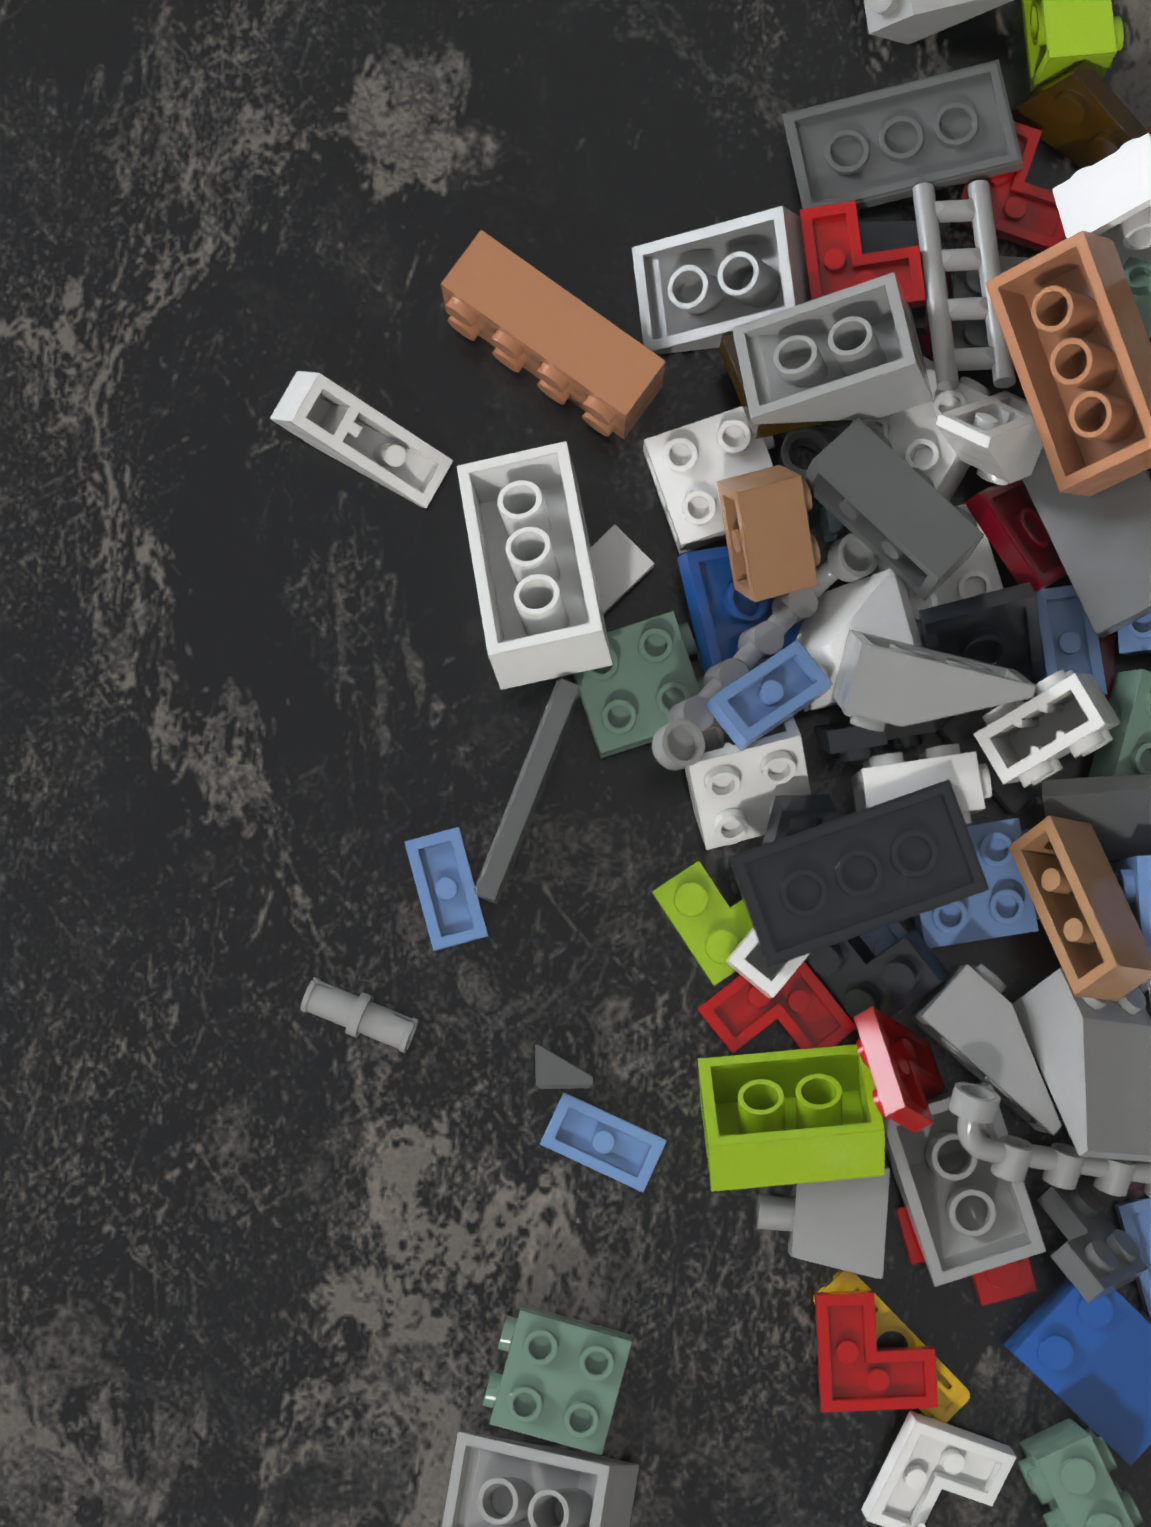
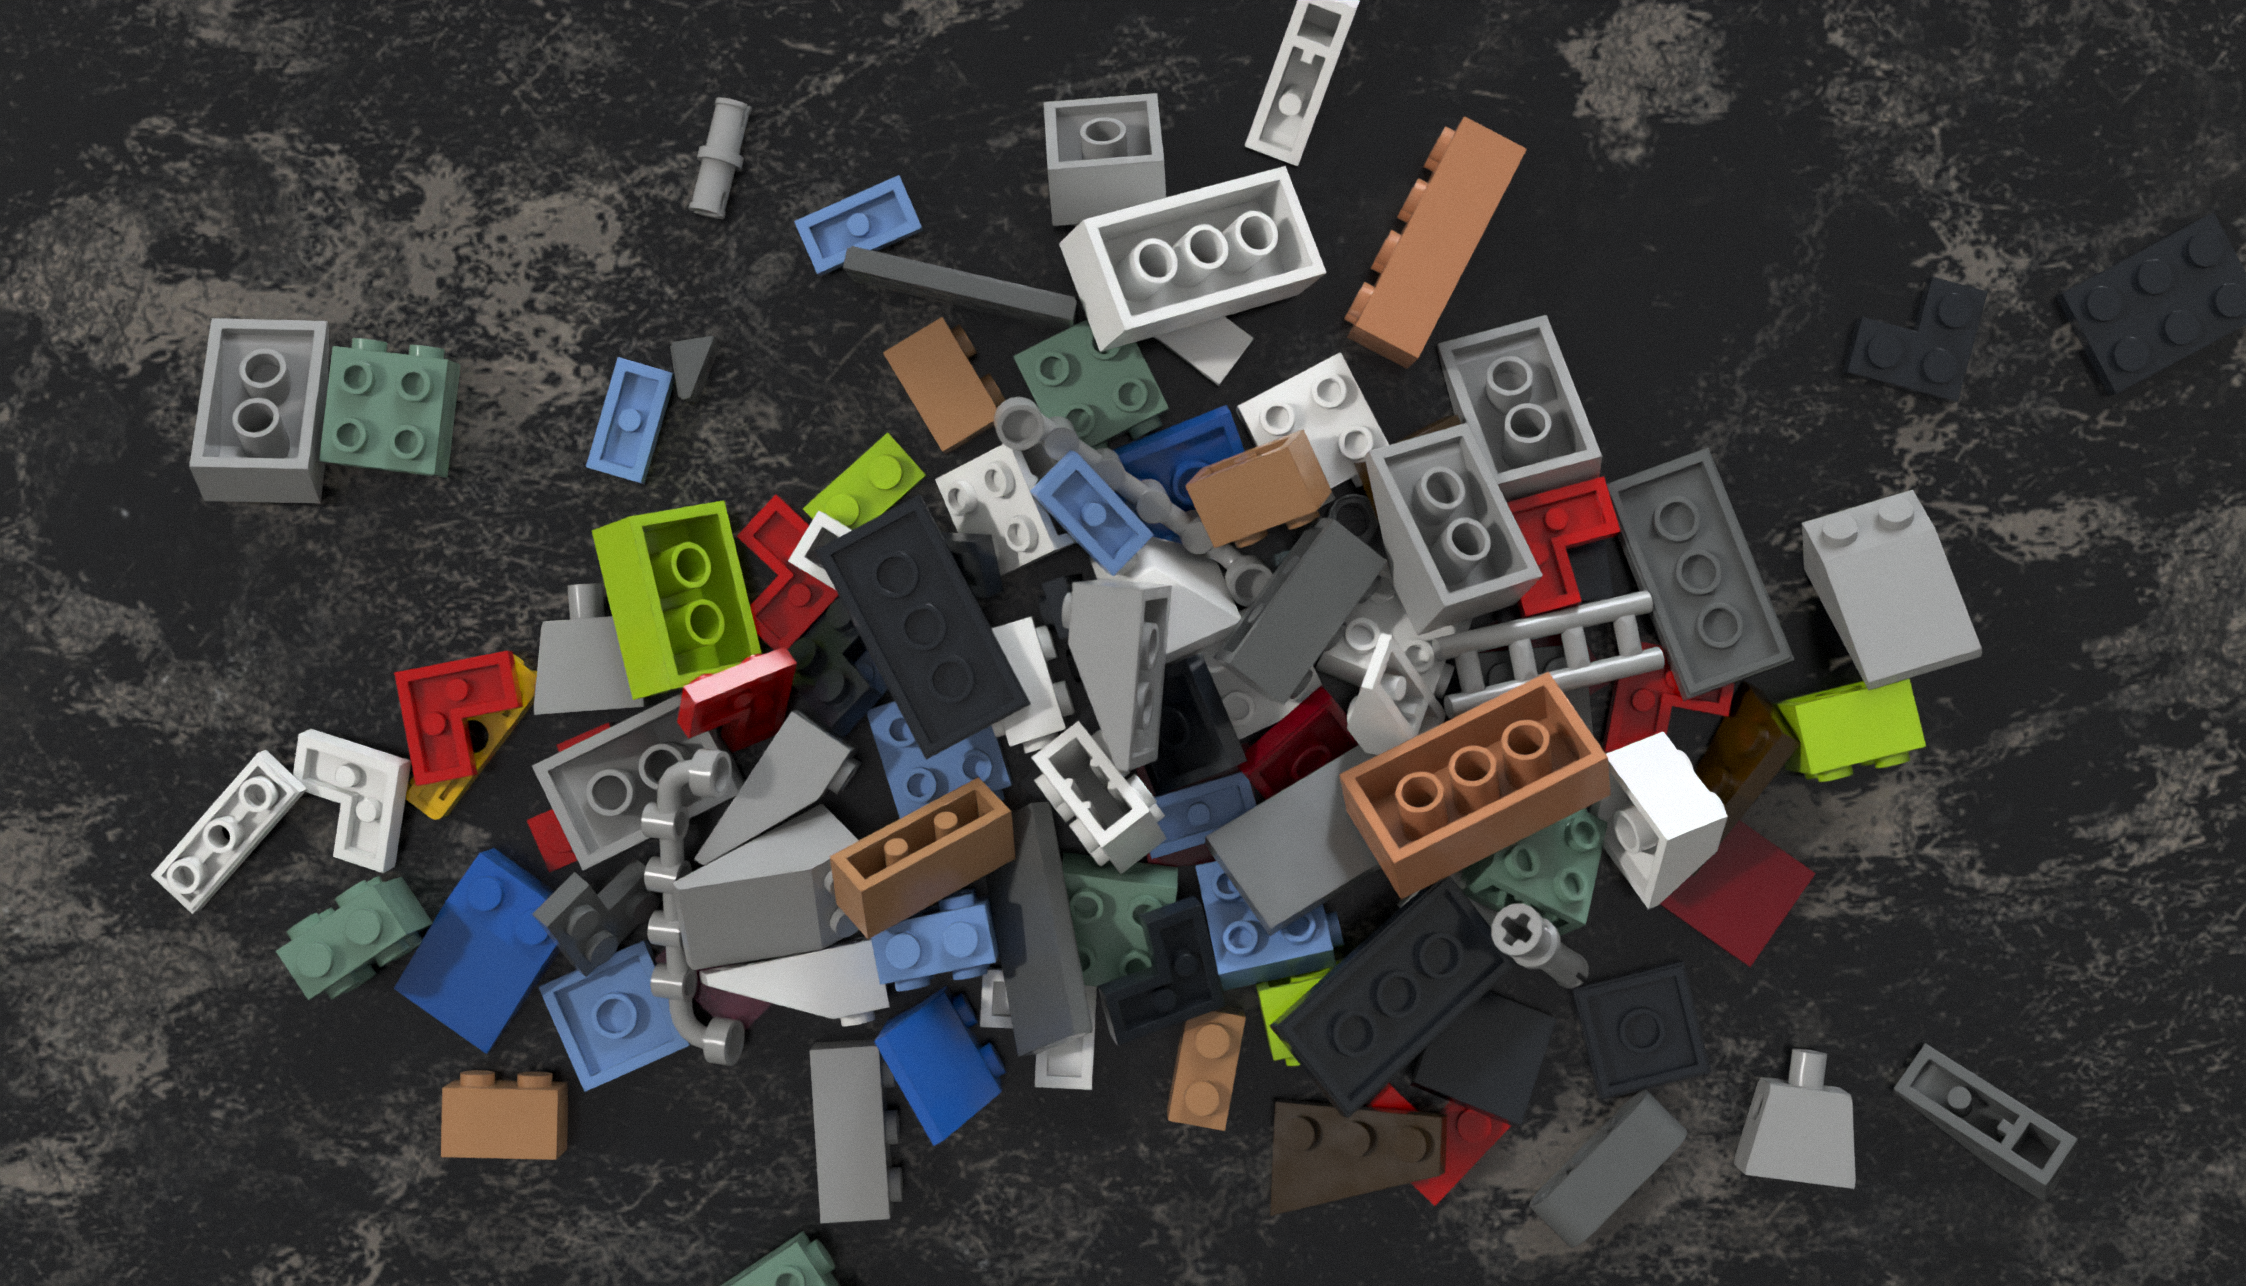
camera: 75 degrees right, 5 degrees up
(419, 640) = (1103, 155): none -> light grey slope
(615, 826) = (944, 384): none -> medium nougat brick

